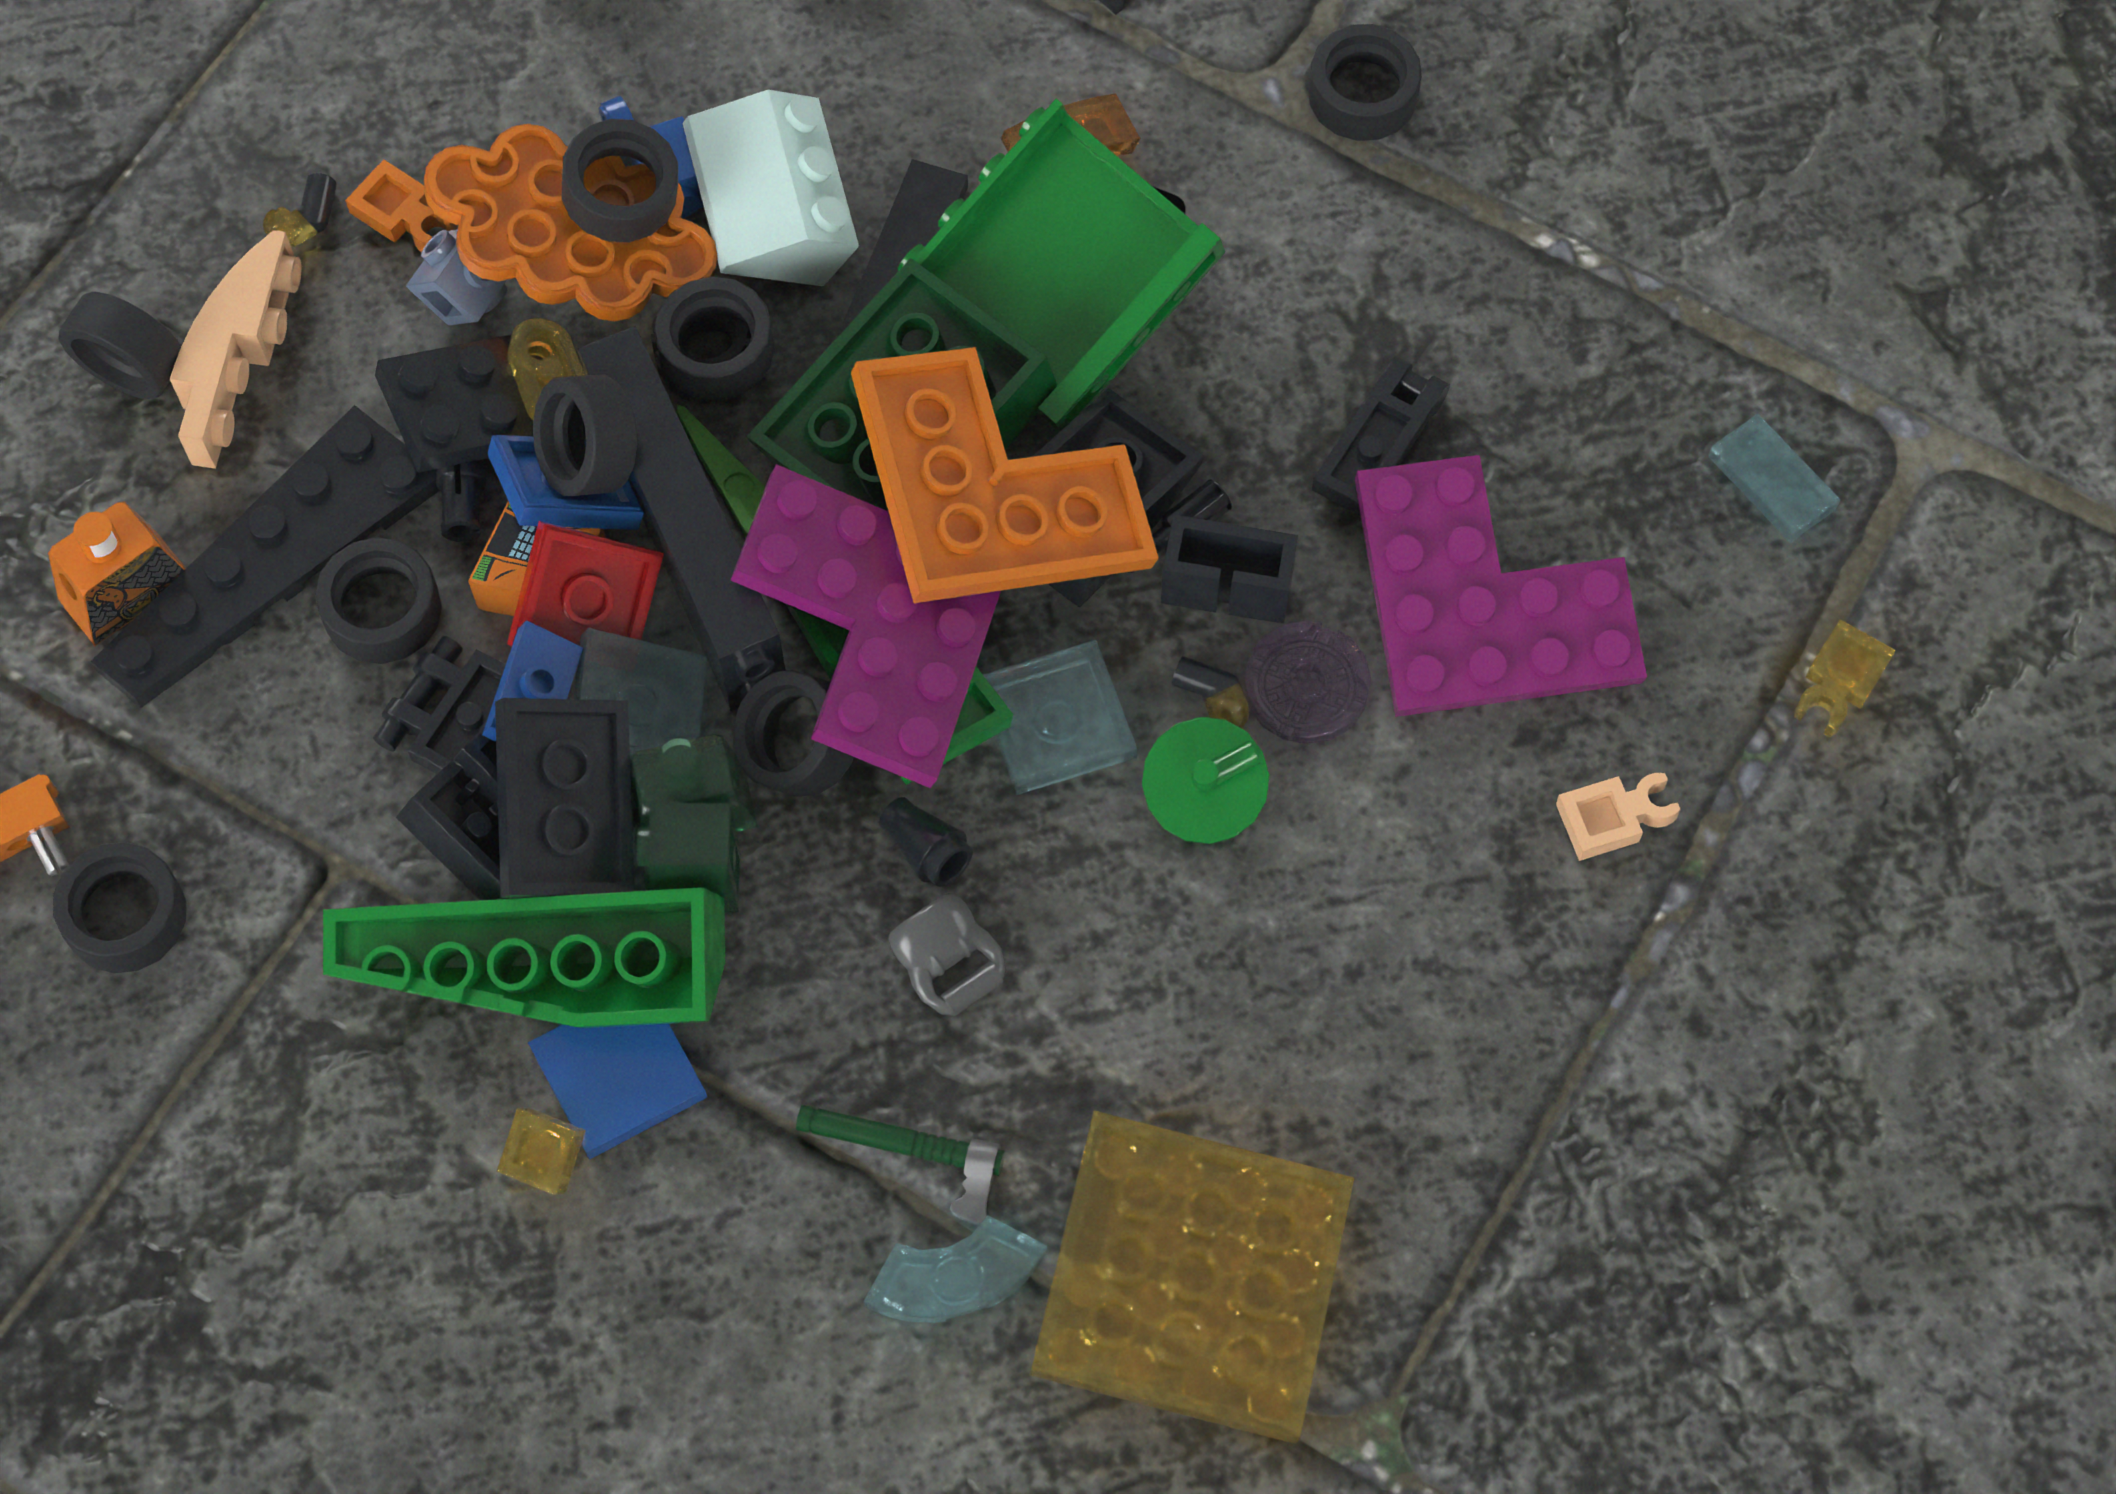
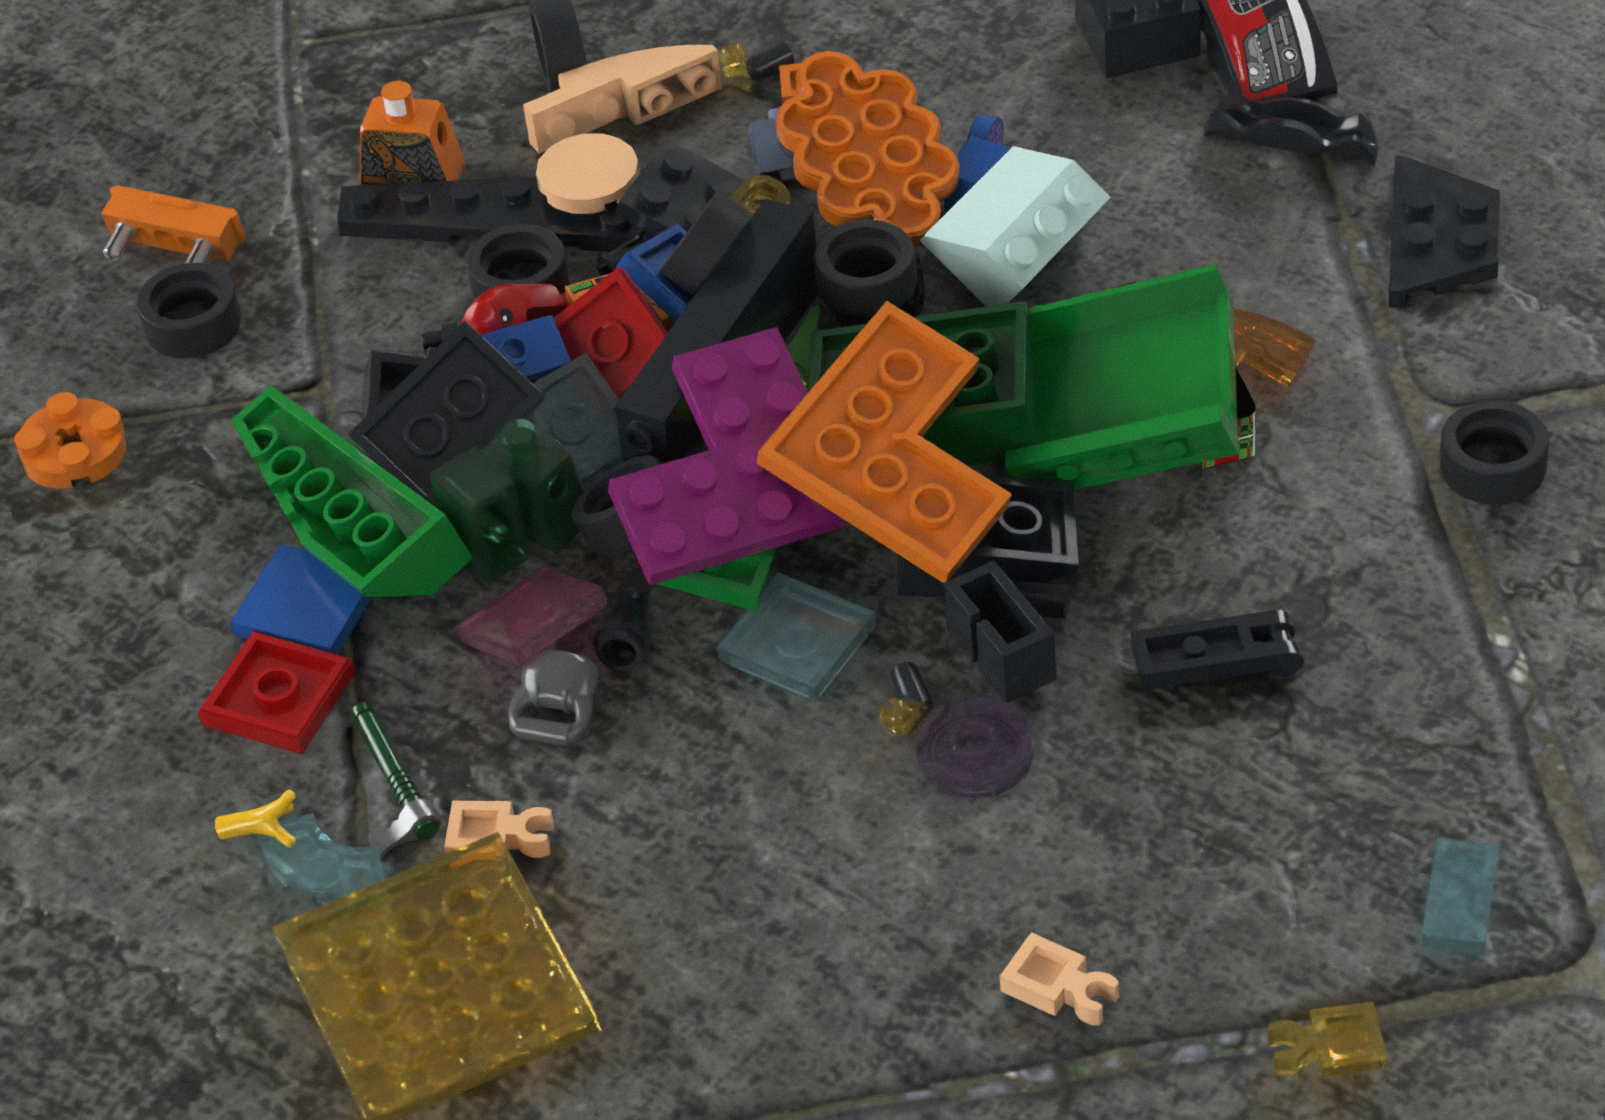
camera: 55 degrees right, 20 degrees down
(155, 1109) = (69, 419): none -> orange plate
(327, 452) = (586, 172): none -> light nougat tile
(459, 658) = (512, 305): none -> red animal
(541, 1151) = (208, 599): clear yellow plate -> none
(627, 139) = (911, 105): black tyre -> none
(705, 1171) = (277, 692): none -> red tile
(842, 902) = (532, 615): none -> clear pink tile
(875, 1291) = (259, 821): none -> yellow bar
(1056, 1117) = (479, 819): none -> light nougat plate
(1205, 780) = (831, 740): green shield -> none
(1464, 629) = (1118, 794): magenta plate -> none

